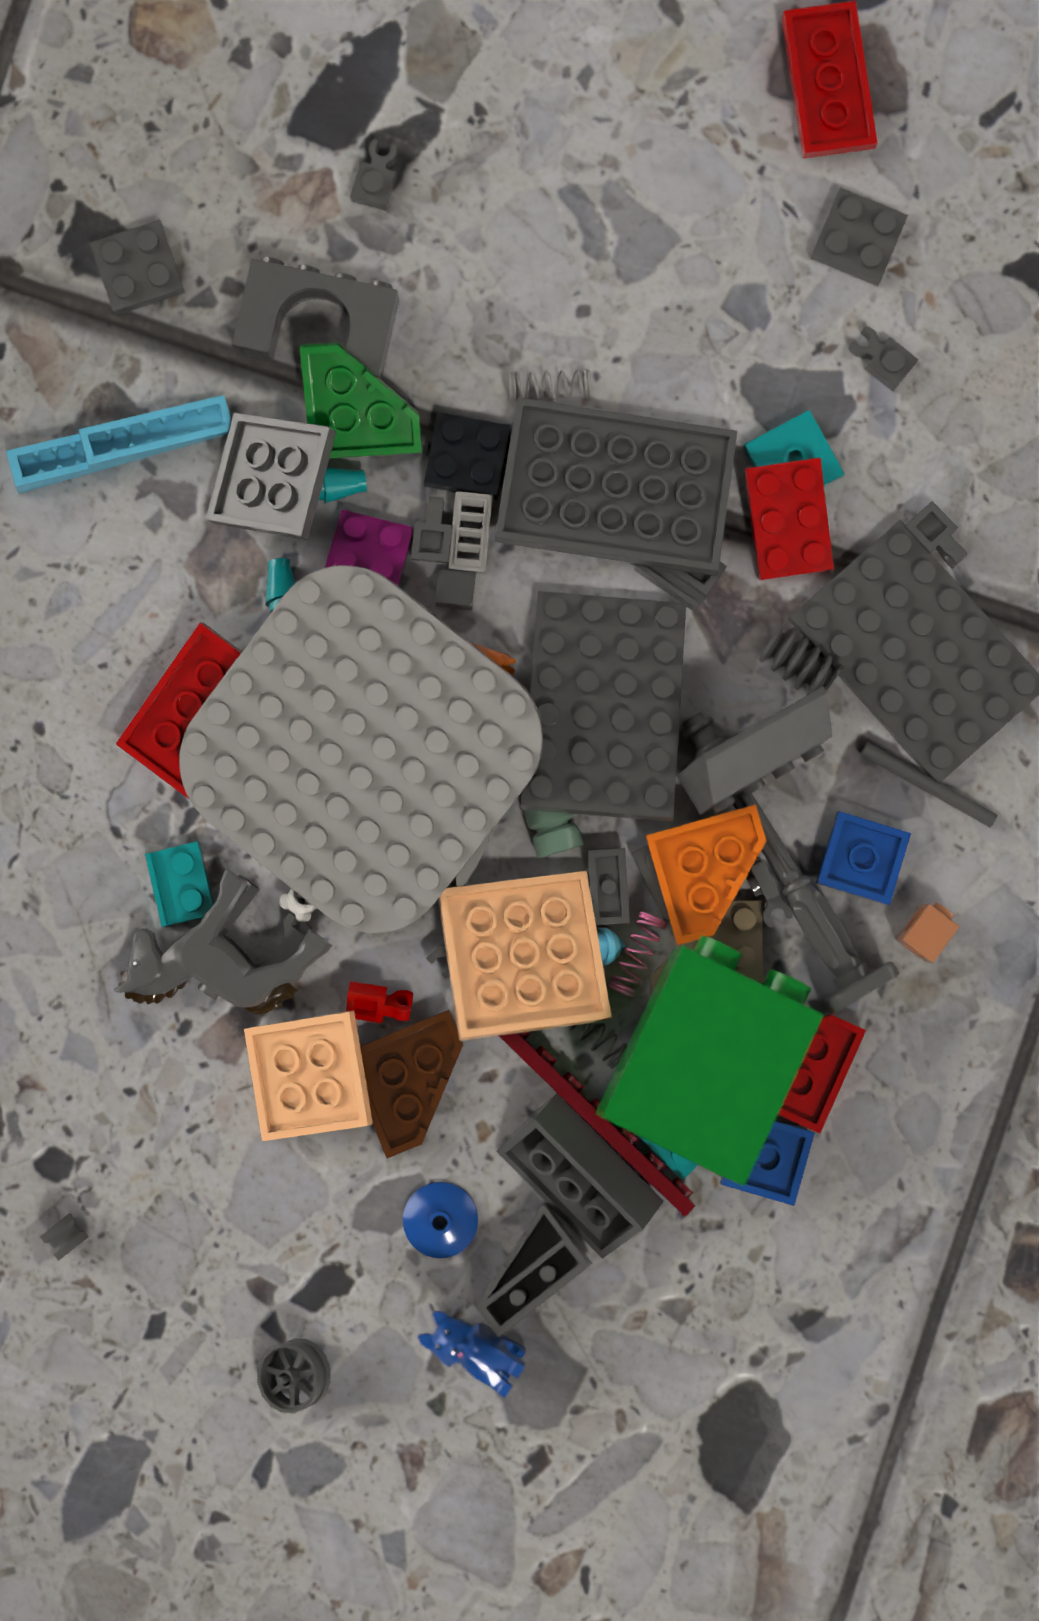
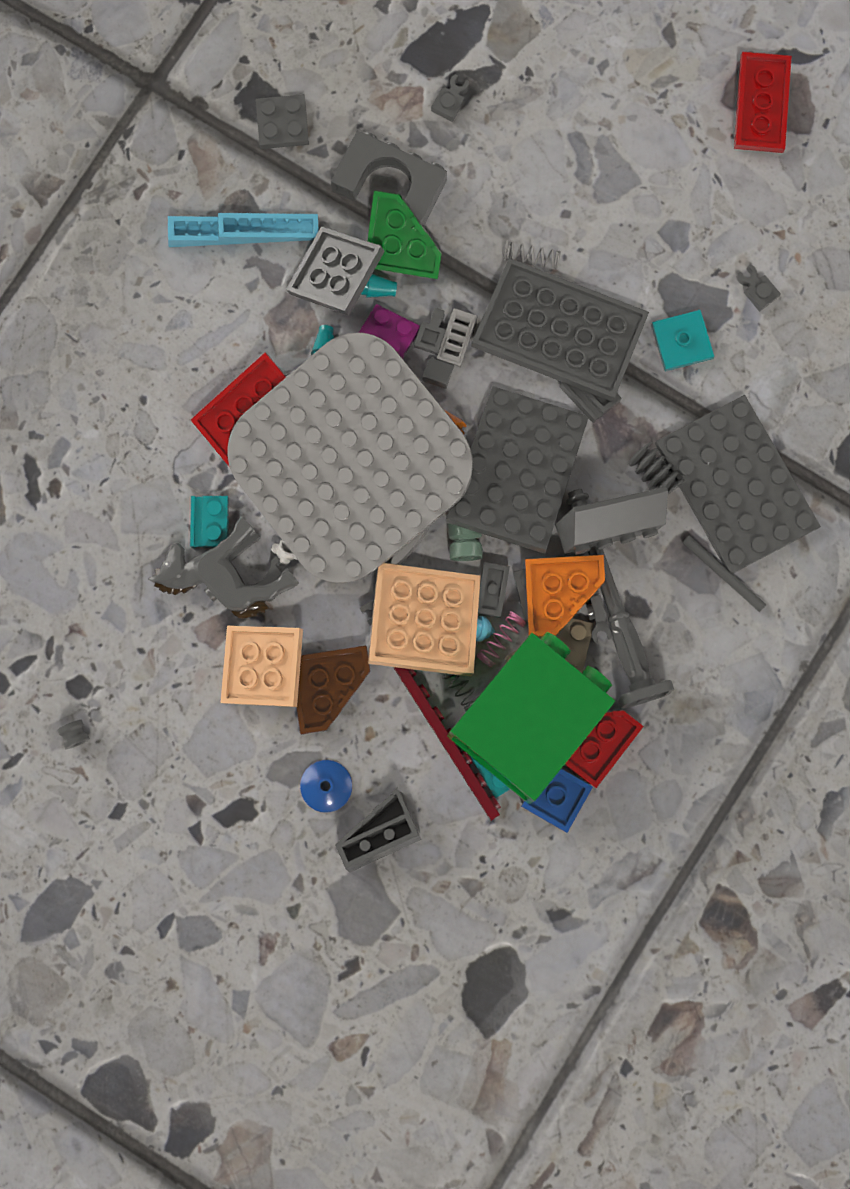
camera: 25 degrees right, 5 degrees down
(293, 1375) = (202, 864): dark grey wheel -> none
(373, 1003) = (316, 629): red plate -> none
(466, 455) = (466, 287): black plate -> none
(476, 1350) = (329, 875): blue animal -> none
(580, 1176) = (427, 777): dark grey slope -> none
(789, 518) = (670, 376): red plate -> none
(859, 236) = (759, 206): dark grey plate -> none
(863, 858) = (668, 611): blue plate -> none
(928, 931) = (701, 670): nougat brick -> none
(934, 531) = (766, 408): dark grey plate -> none

